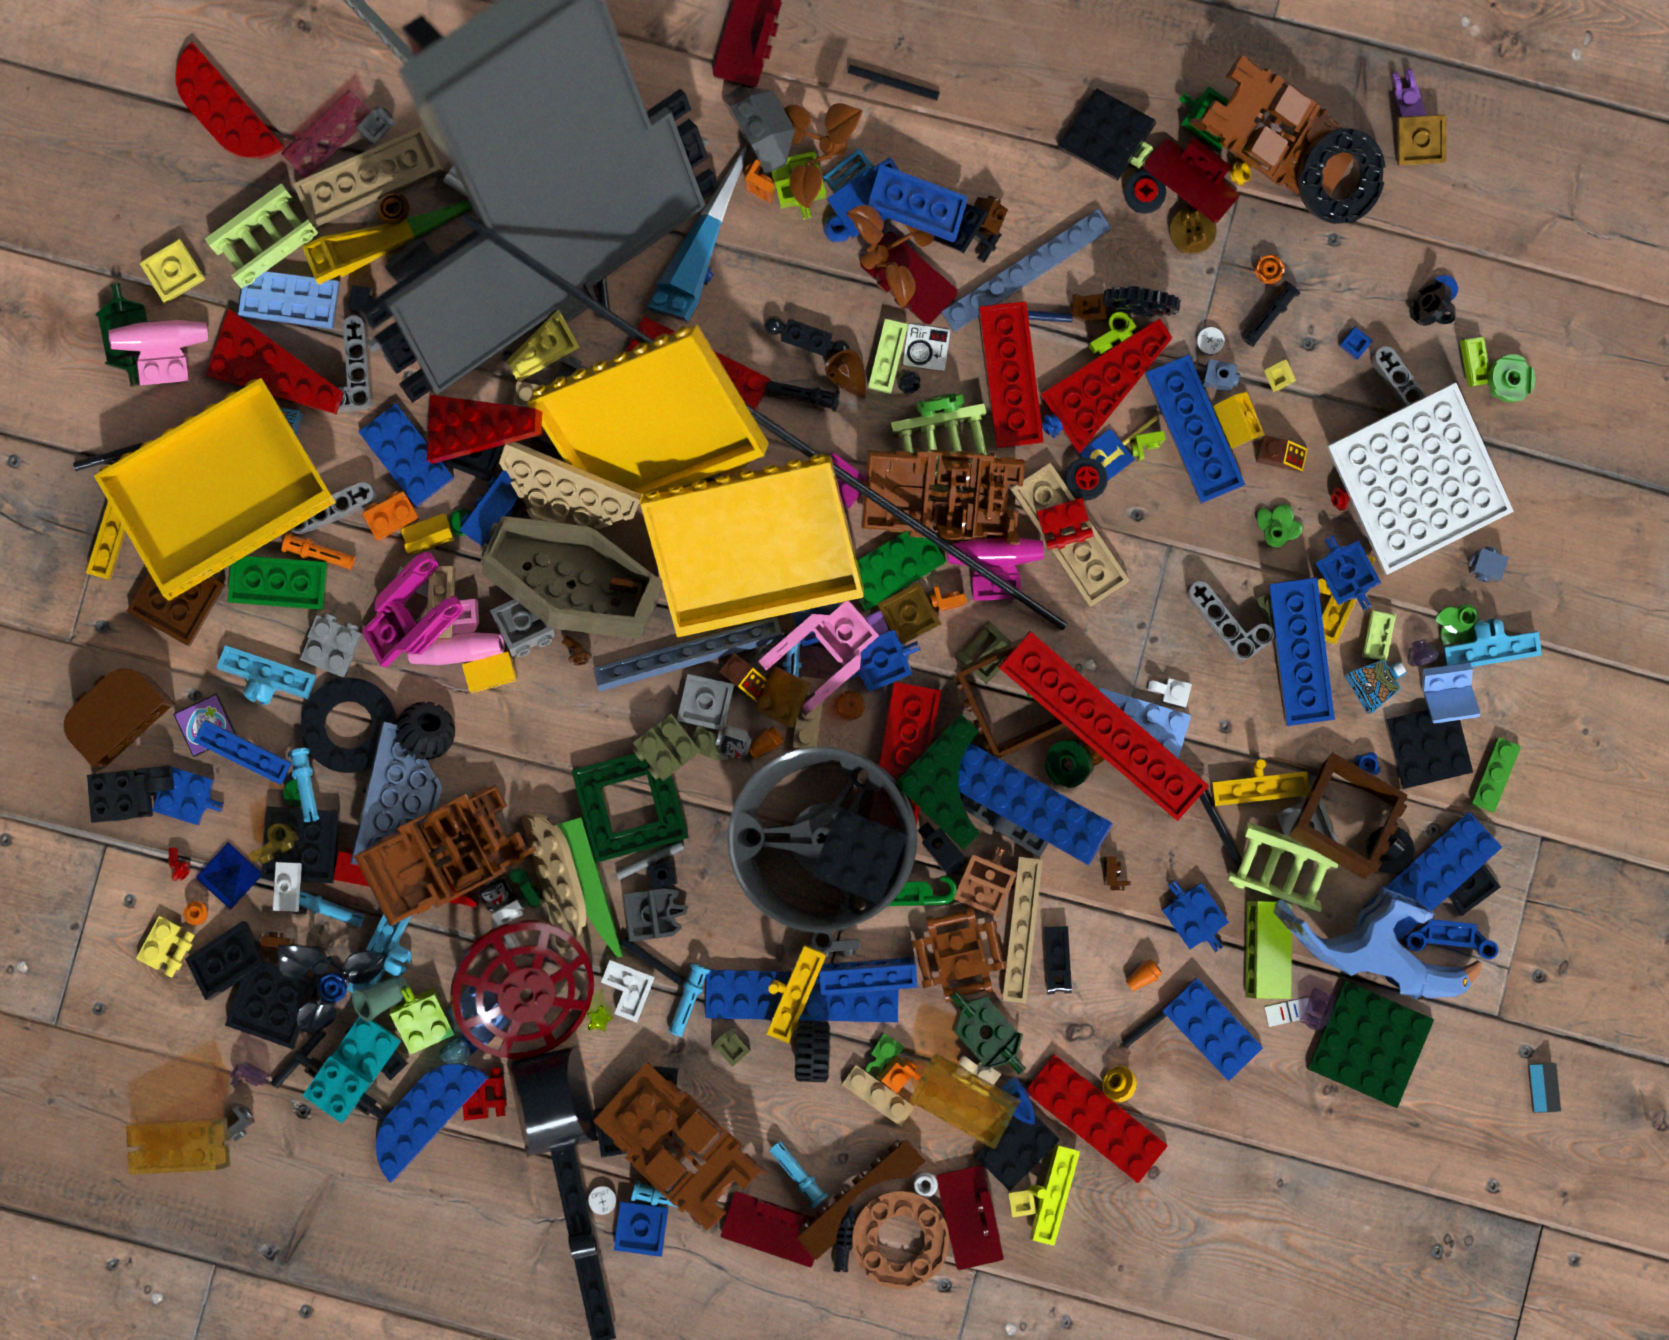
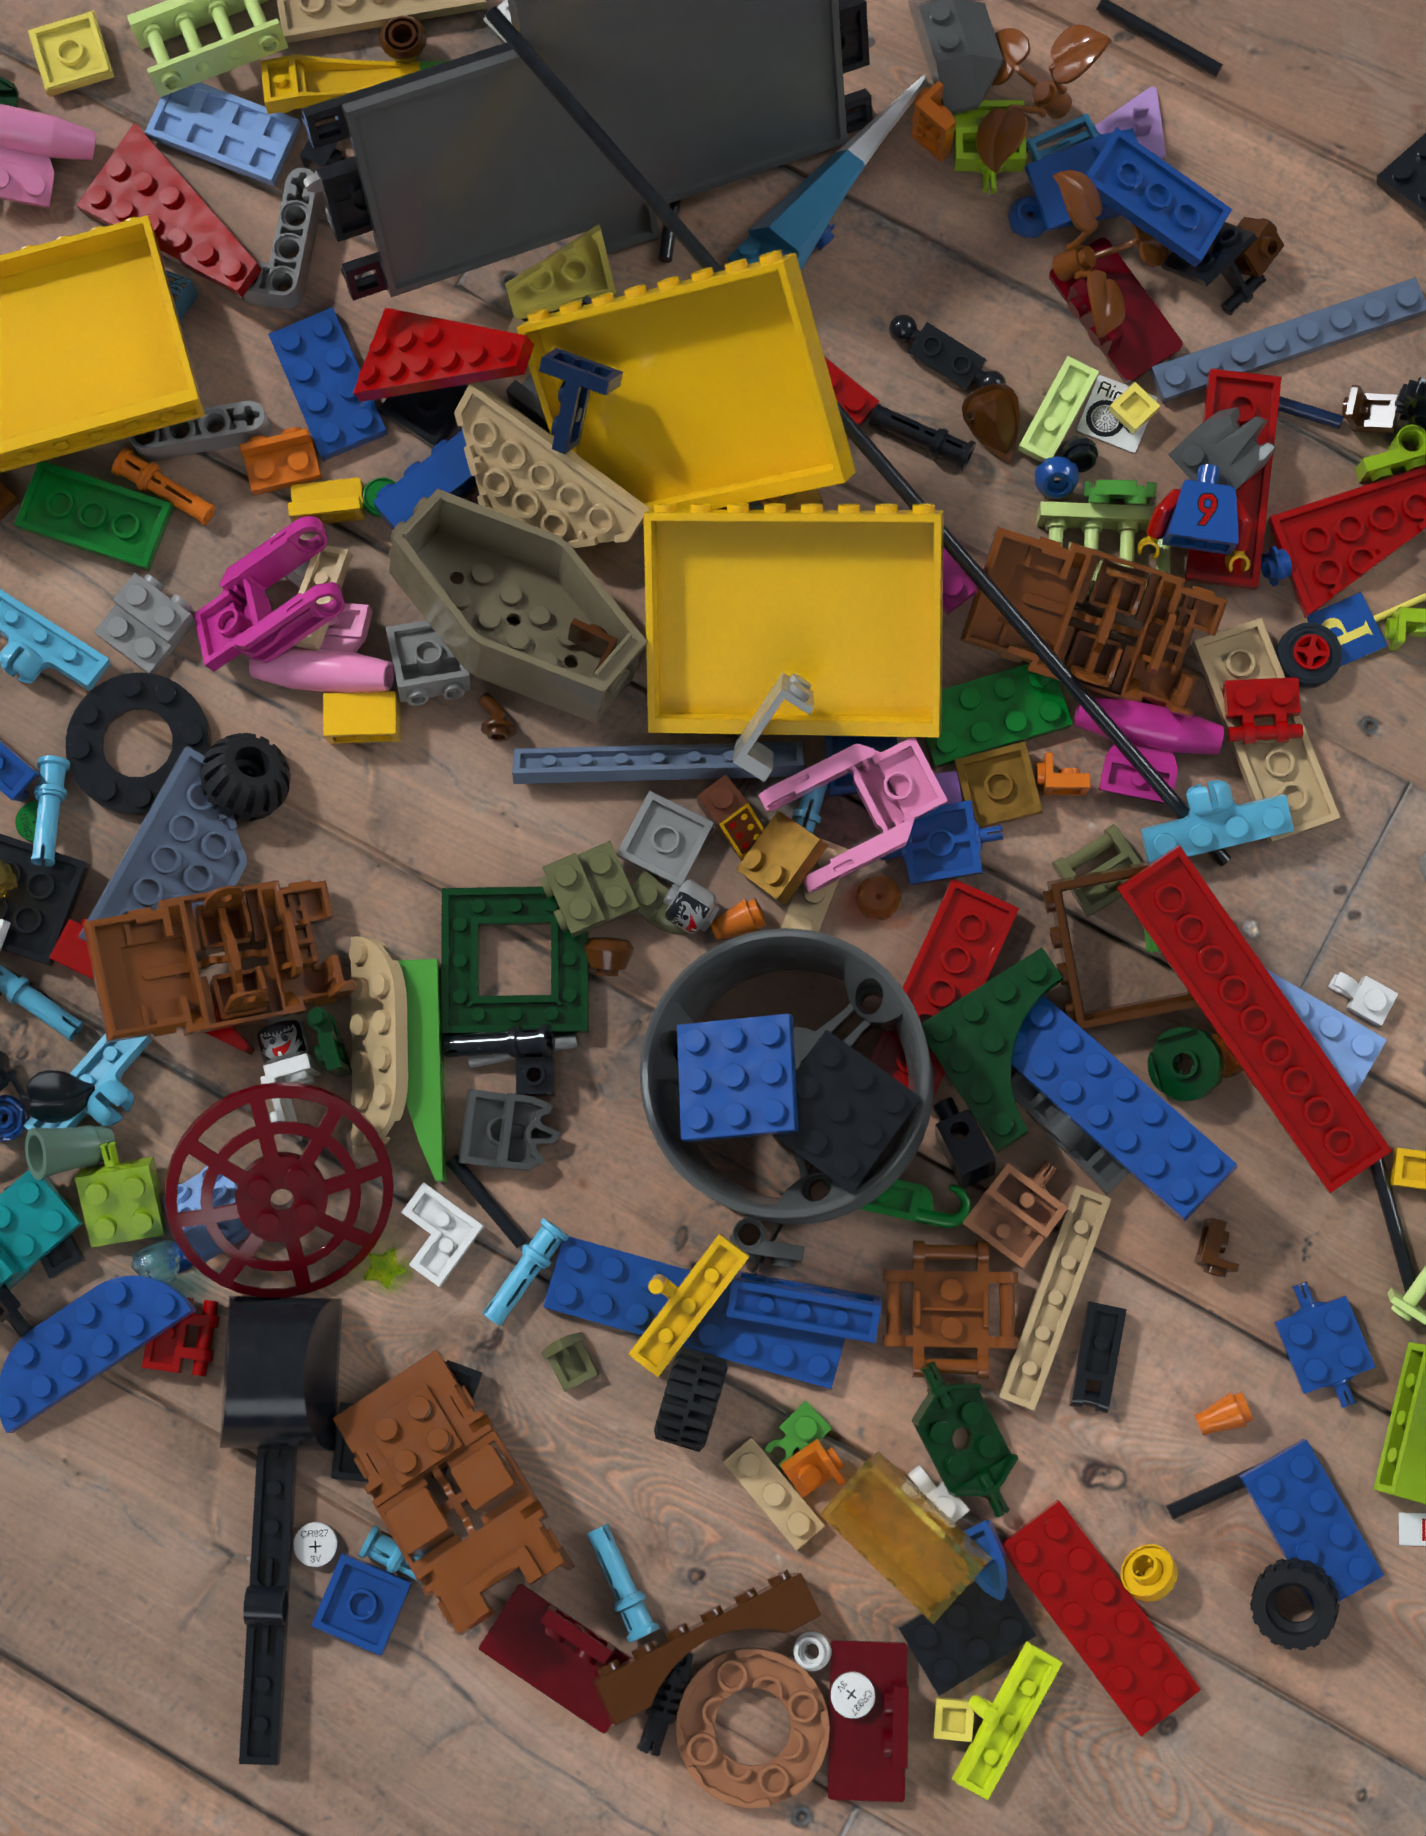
camera: 20 degrees right, 5 degrees down
(576, 426) = (580, 378): none -> dark blue bracket
(644, 857) = (513, 1042): none -> black pin
(688, 786) = (608, 954): none -> reddish brown cone
(750, 638) = (750, 753): none -> light grey panel
(791, 851) = (737, 1078): none -> blue plate
(893, 144) = (1141, 115): none -> lavender piece
(897, 402) = (1052, 468): none -> blue plate
(936, 342) = (1134, 408): none -> light yellow plate
(956, 1204) = (852, 1695): none -> white piece
(996, 412) = (1202, 518): none -> blue torso
(1000, 363) = (1226, 445): none -> dark grey plate
(1052, 605) = (1217, 822): none -> medium azure plate
(1208, 1097) = (1287, 1632): none -> black tyre

